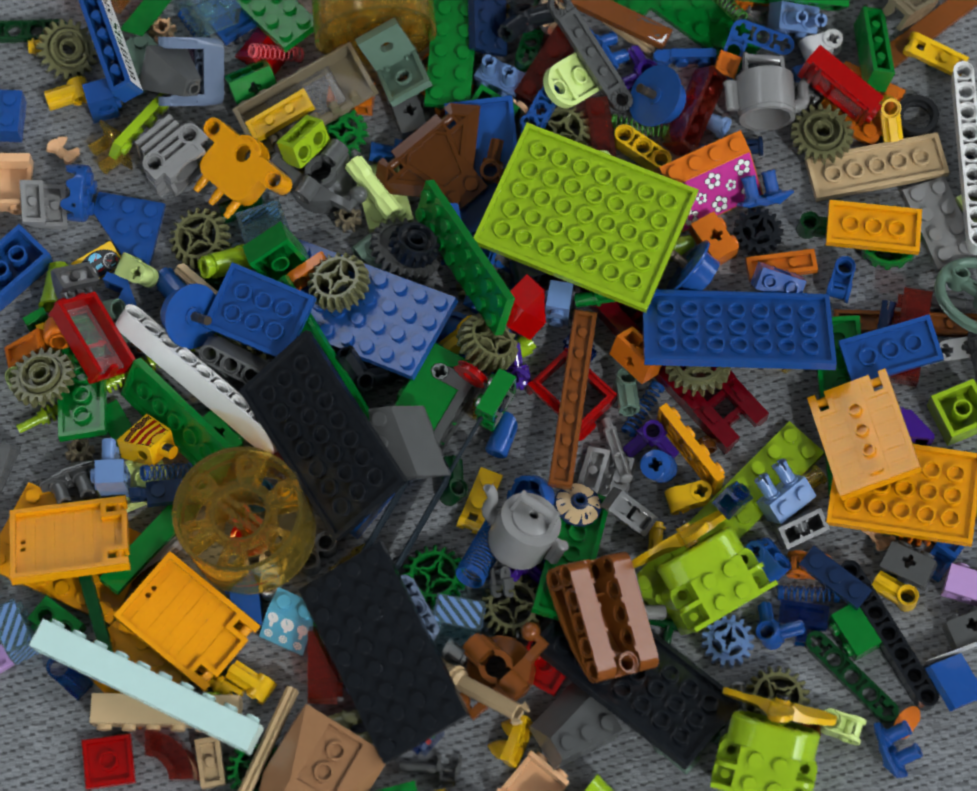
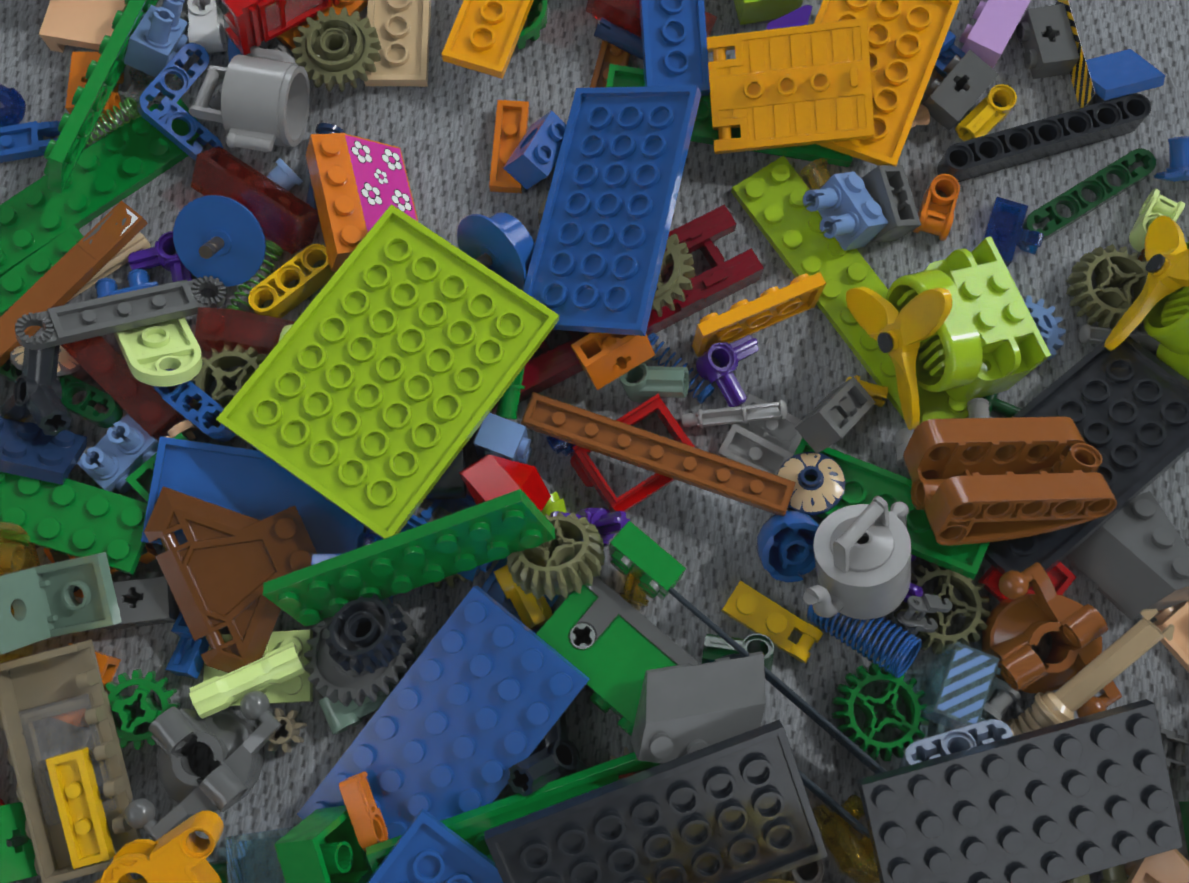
camera: 80 degrees left, 5 degrees up
(303, 141) = (140, 778): lime brick -> none
(342, 289) = (426, 777): olive gear -> none
(470, 374) = (607, 587): red piece -> none
(493, 160) = (255, 487): reddish brown axle -> none
(502, 437) = (697, 571): blue arm -> none
(512, 750) = (1149, 663): yellow tile -> none
(651, 461) = (778, 360): blue piece -> none
(684, 56) = (167, 196): blue hinge -> none
(685, 496) = (818, 341): yellow piece -> none
(709, 443) = (747, 292): reddish brown plate -> none
(715, 226) = (436, 213): orange brick -> none
(728, 63) = (198, 137): orange tile -> none
(733, 499) = (847, 273): brick -> none
(750, 224) = (454, 176): black gear -> none
(769, 625) = (1028, 258): blue axle -> none
(772, 195) = (410, 135): blue connector -> none
(774, 561) = (921, 251): blue piece -> none
(780, 590) = (981, 191): blue piece -> none
(818, 222) = (465, 86): dark green piece -> none
(835, 578) = (971, 174): dark blue plate -> none
(841, 283) = (553, 82): blue piece -> none
(854, 632) = (1035, 174): green brick -> none
(911, 715) = (1154, 144): orange sticker -> none

